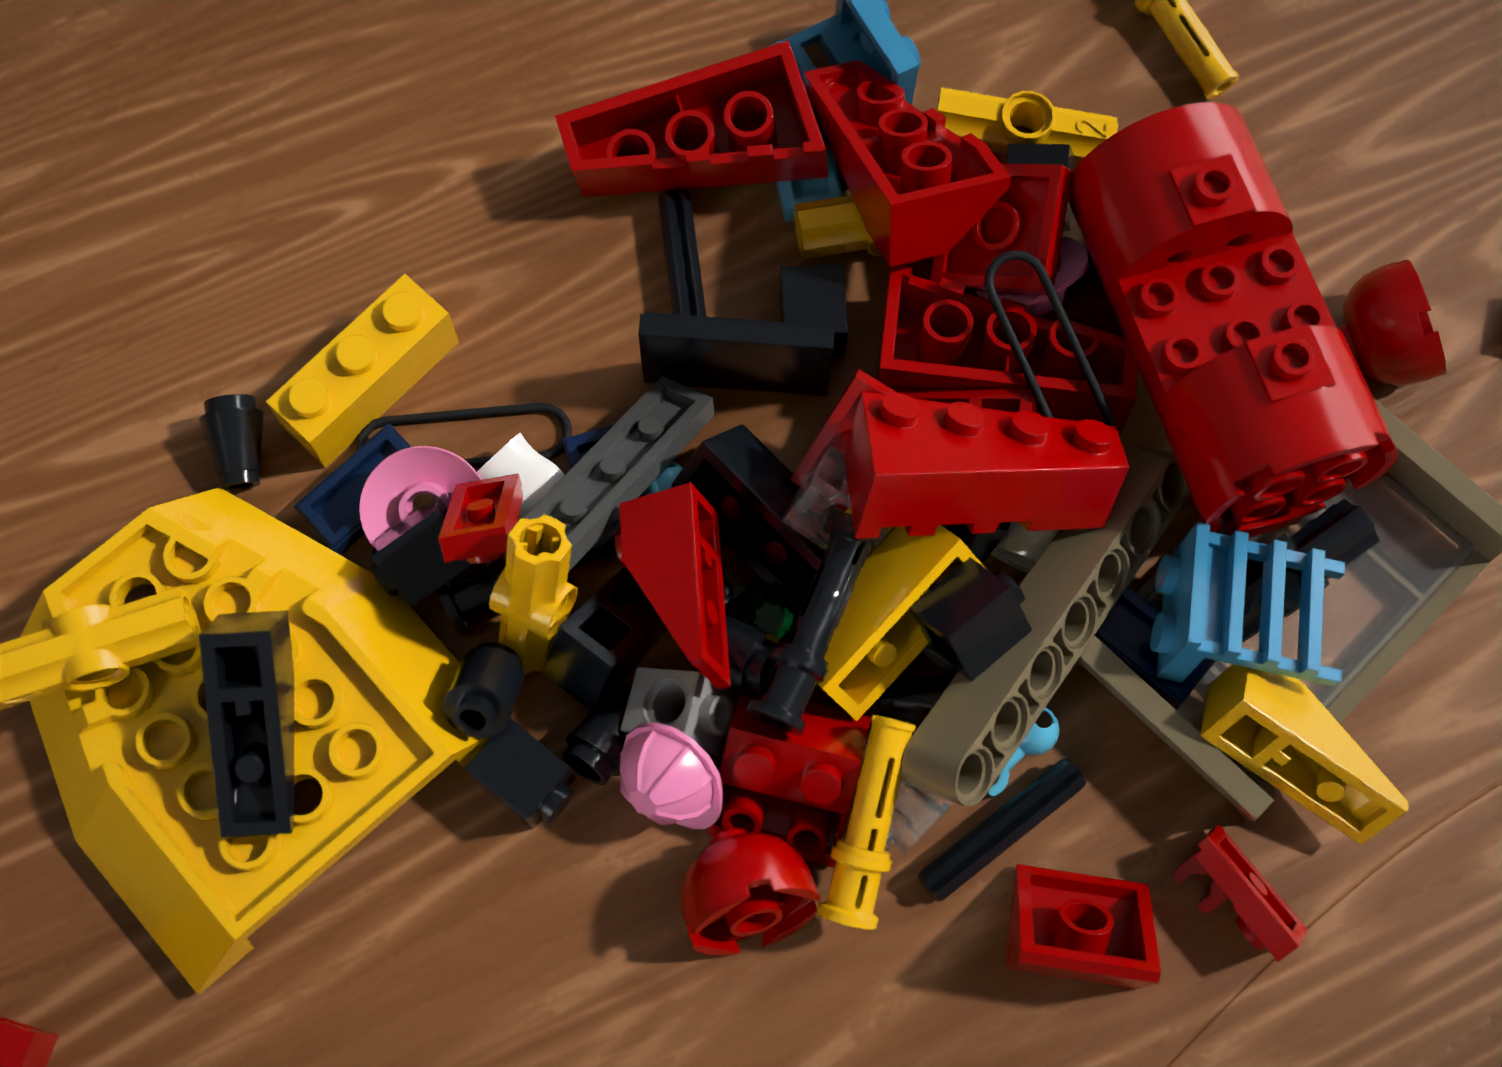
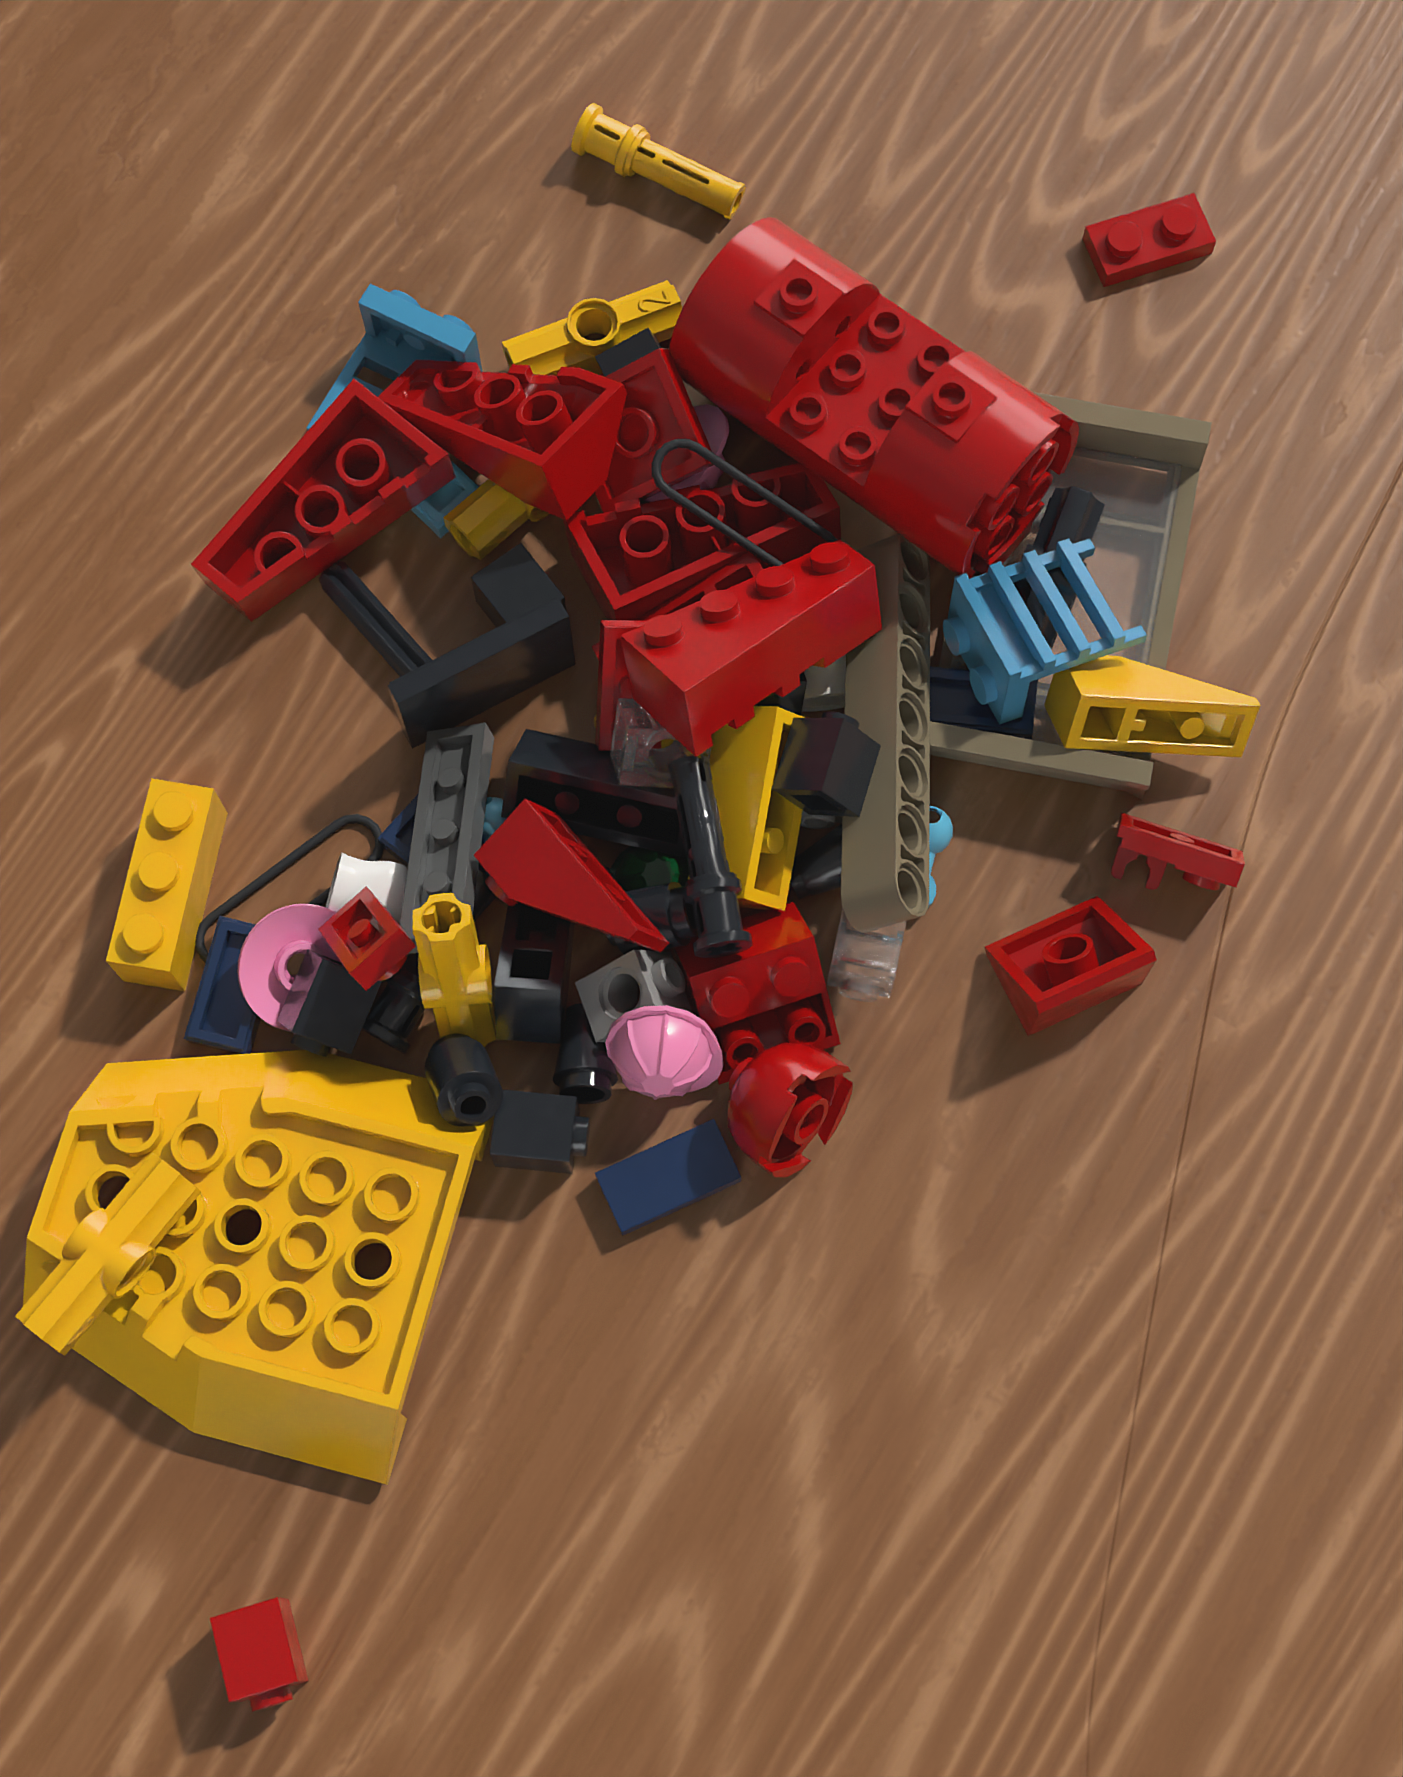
camera: 30 degrees left, 0 degrees up
(234, 439) = (91, 1014): black cone -> none
(251, 720) = (293, 1224): black slope -> none
(608, 886) = (668, 1177): none -> dark blue tile
(862, 854) = (860, 1011): yellow pin -> none
(1001, 829) = (955, 926): black axle -> none
(1392, 328) = (1005, 324): red cylinder -> none

